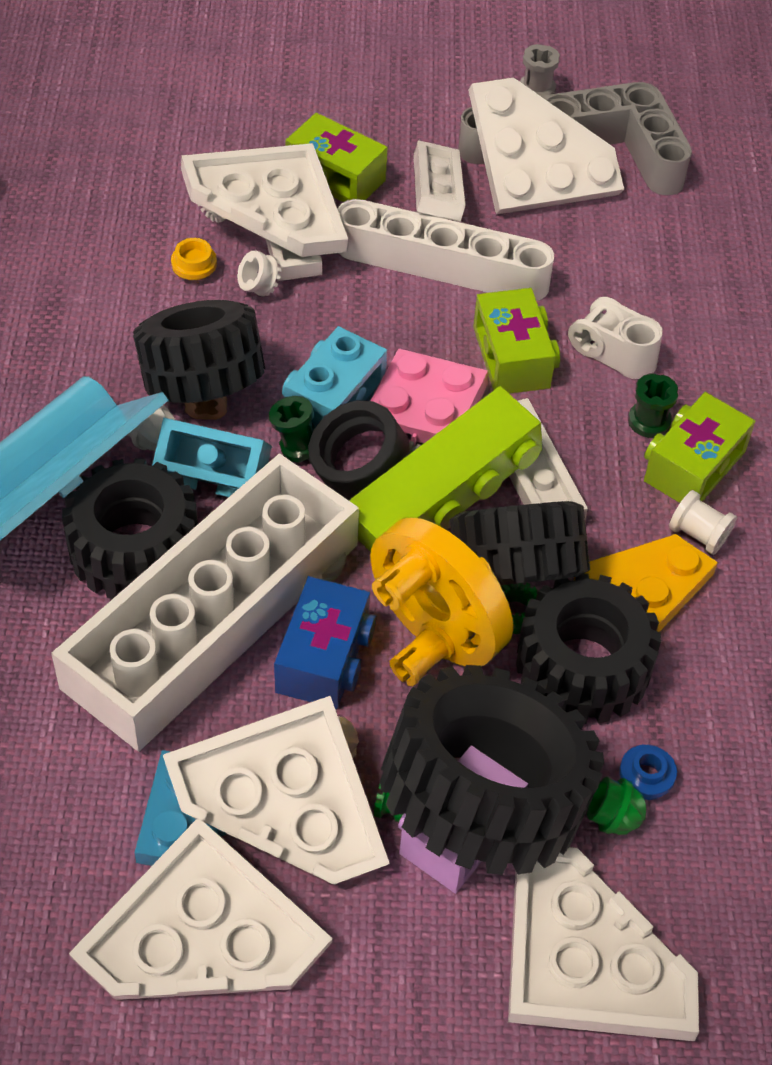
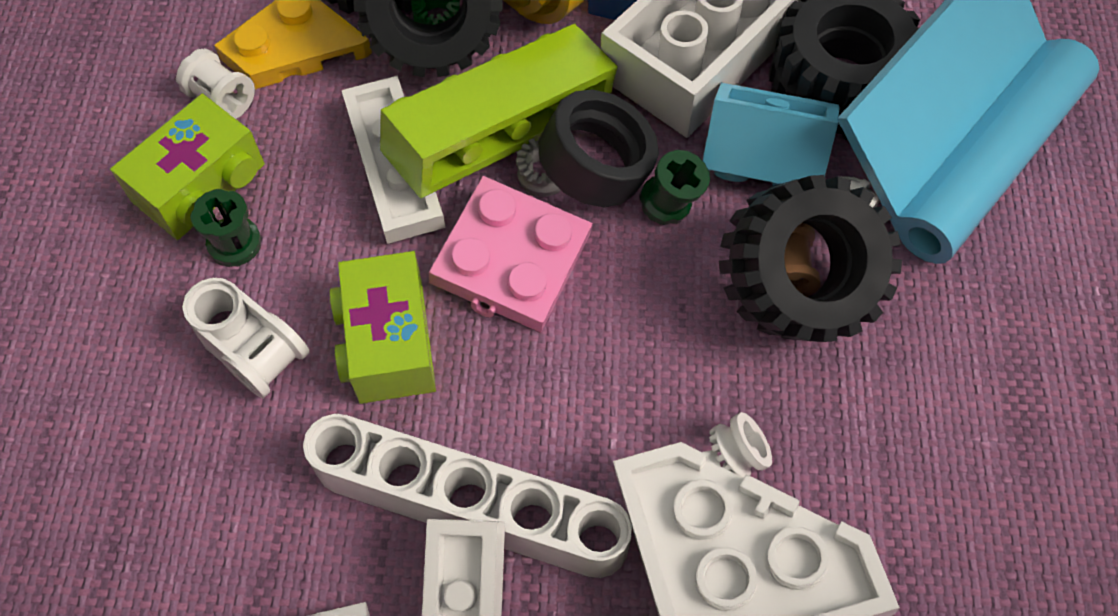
camera: 175 degrees left, 10 degrees up
(193, 259) = (839, 490): yellow plate -> none
(338, 372) = (626, 260): medium azure brick -> none

